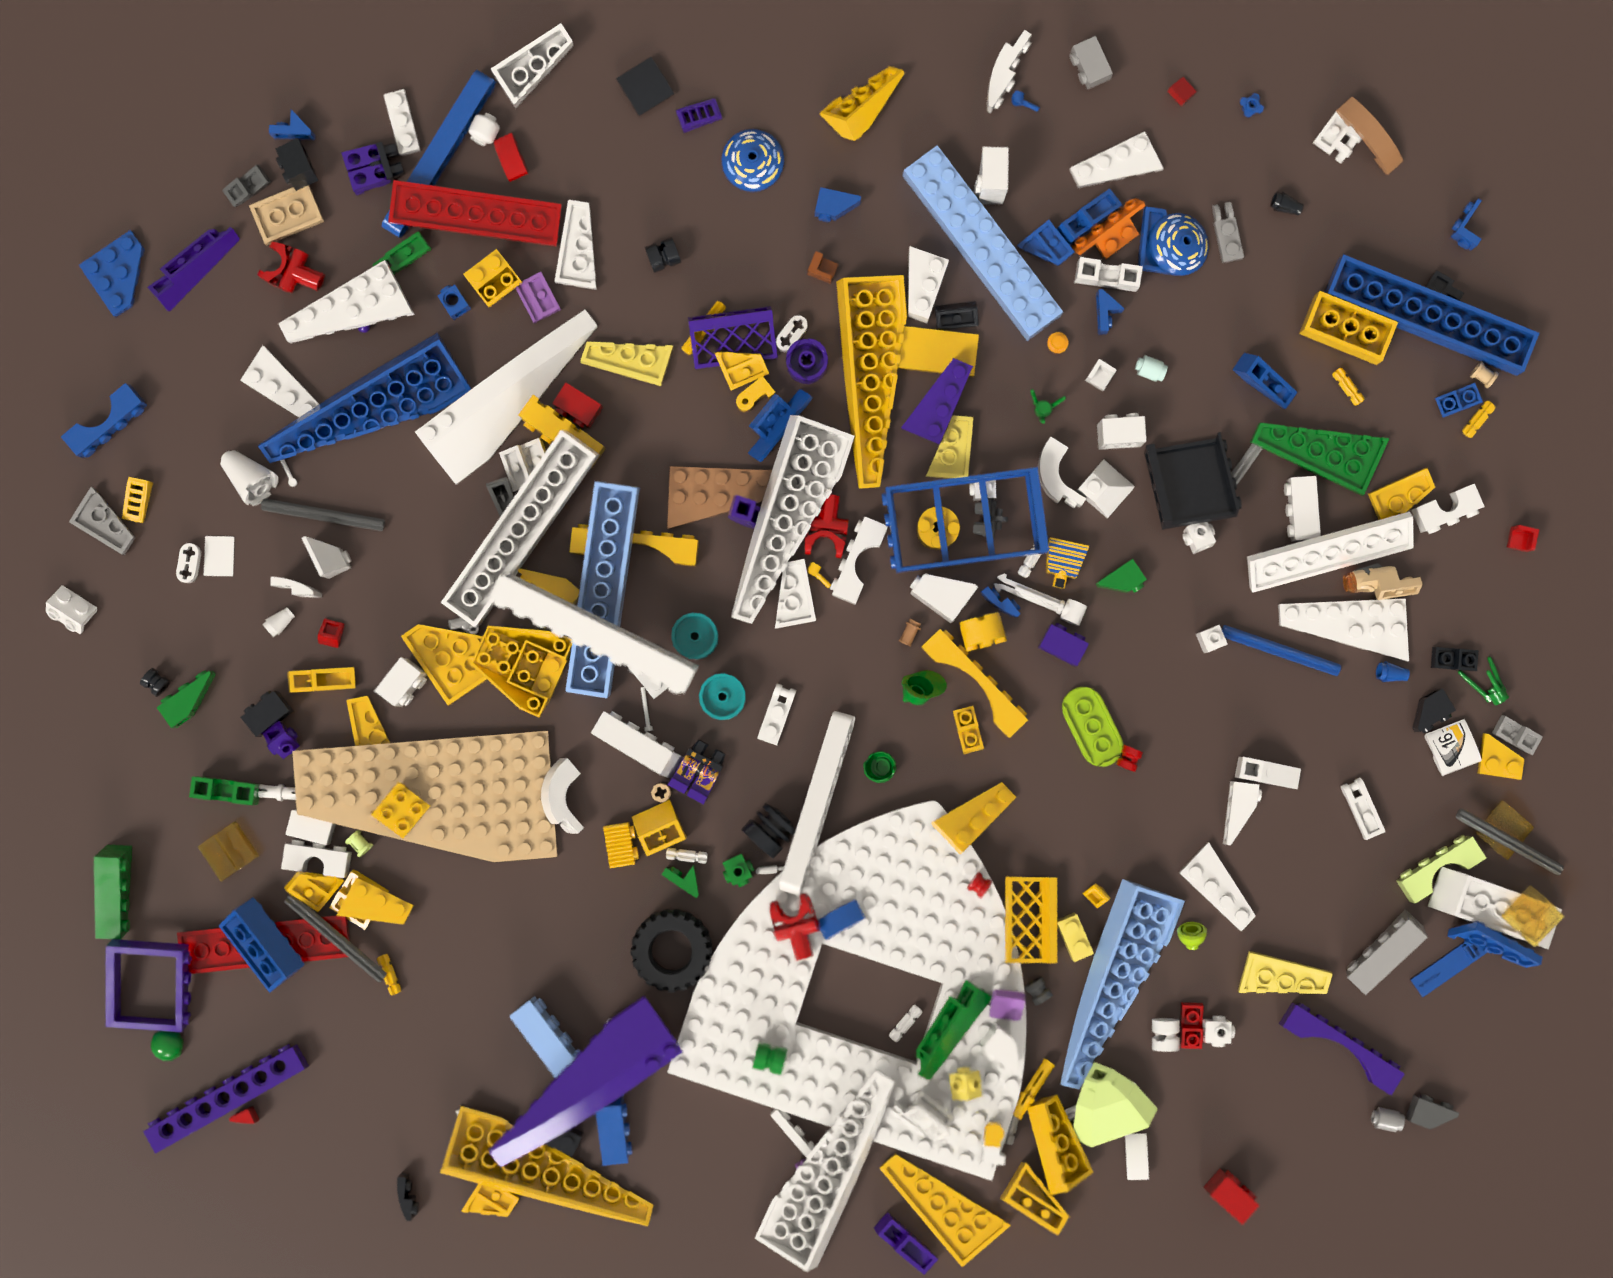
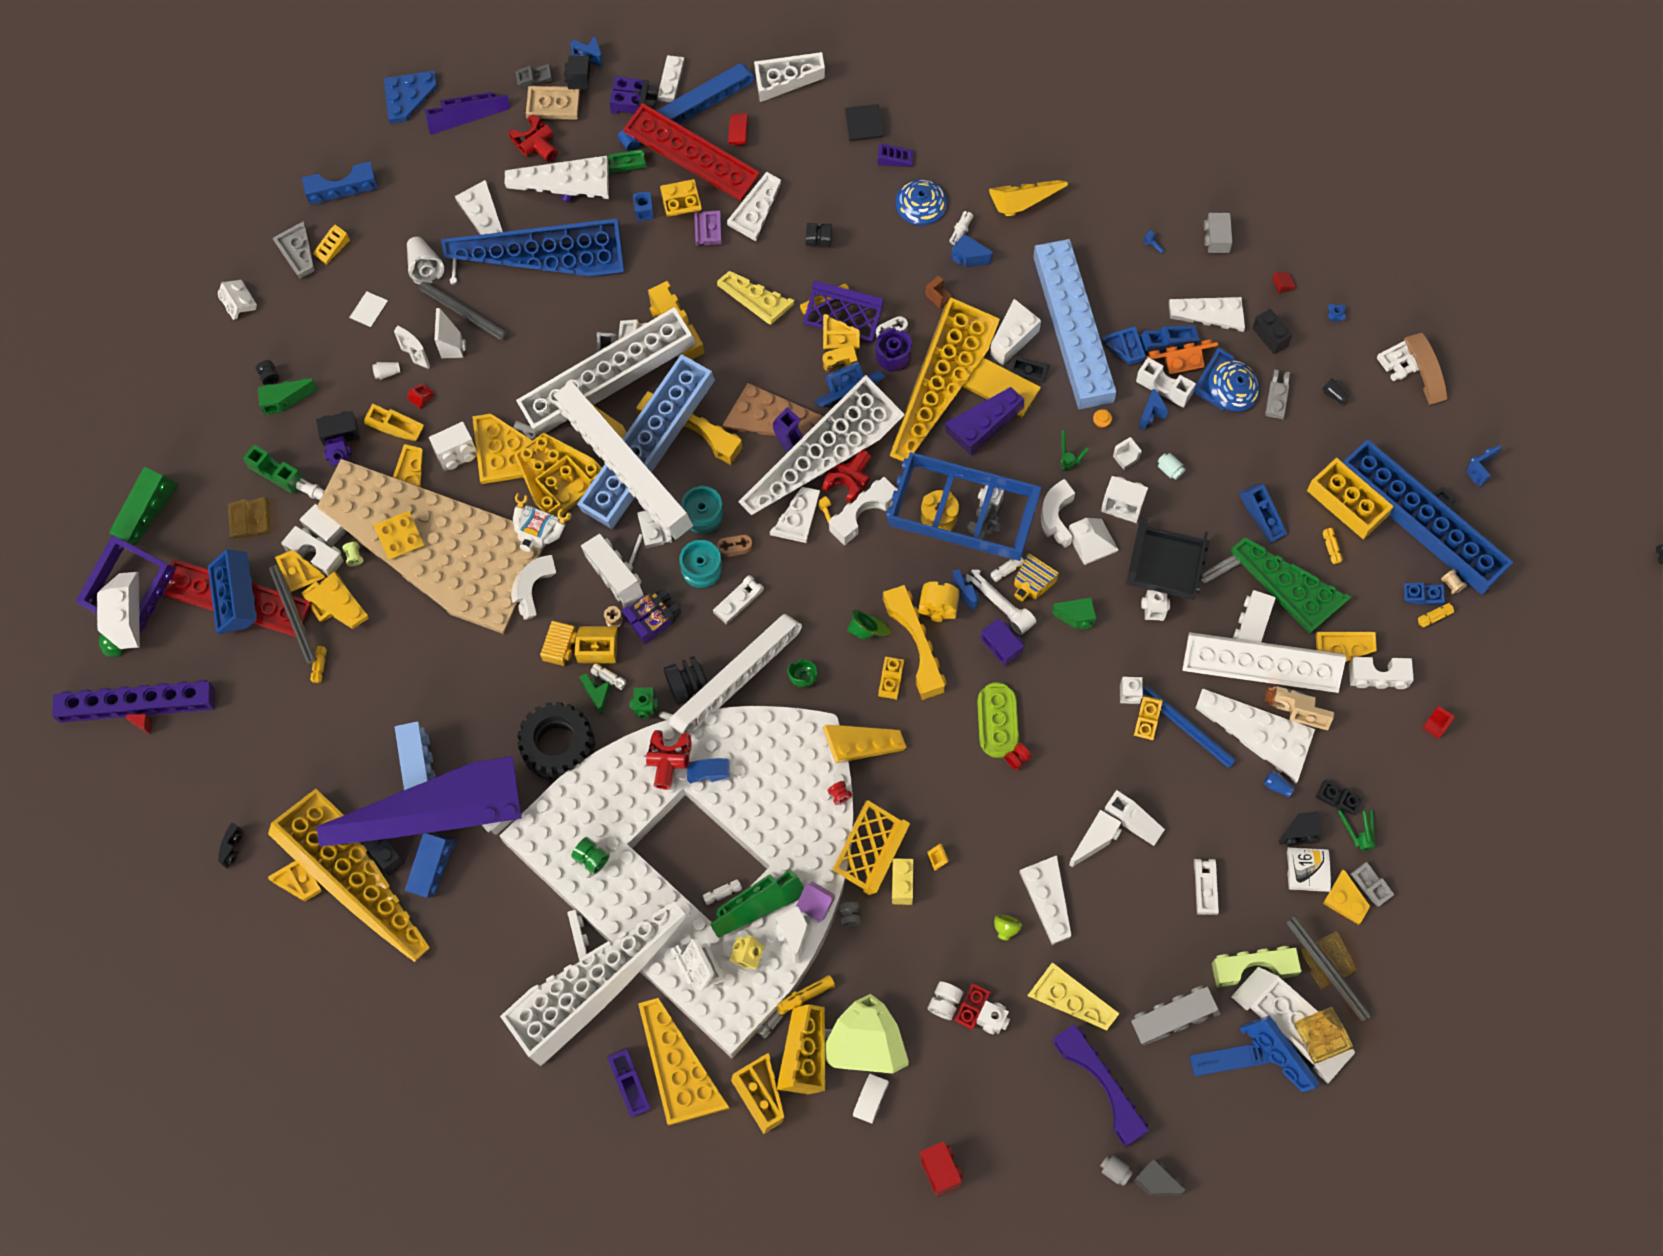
camera: 25 degrees right, 20 degrees down
(159, 1017) = (120, 610): none -> white wedge
(193, 564) = (343, 303): white beam -> none
(482, 419) = (617, 292): white wedge -> none
(484, 129) = (728, 103): white head -> none
(535, 734) = (535, 526): none -> torso
(577, 405) = (698, 311): red brick -> none
(741, 653) = (735, 545): none -> medium nougat beam
(811, 176) = (962, 227): none -> white pin
(910, 632) = (882, 579): medium nougat pin -> none
(942, 594) = (920, 559): white slope -> none
(954, 450) = (984, 457): light yellow wing -> none
(991, 1144) = (748, 1011): leg -> none
(993, 176) = (1101, 273): white wedge -> none
(1002, 76) = (1144, 214): white slope -> none
(1129, 945) = (949, 911): light blue wedge -> none
(1194, 161) = (1272, 331): none -> black brick
(1239, 659) = (1148, 717): none -> yellow slope

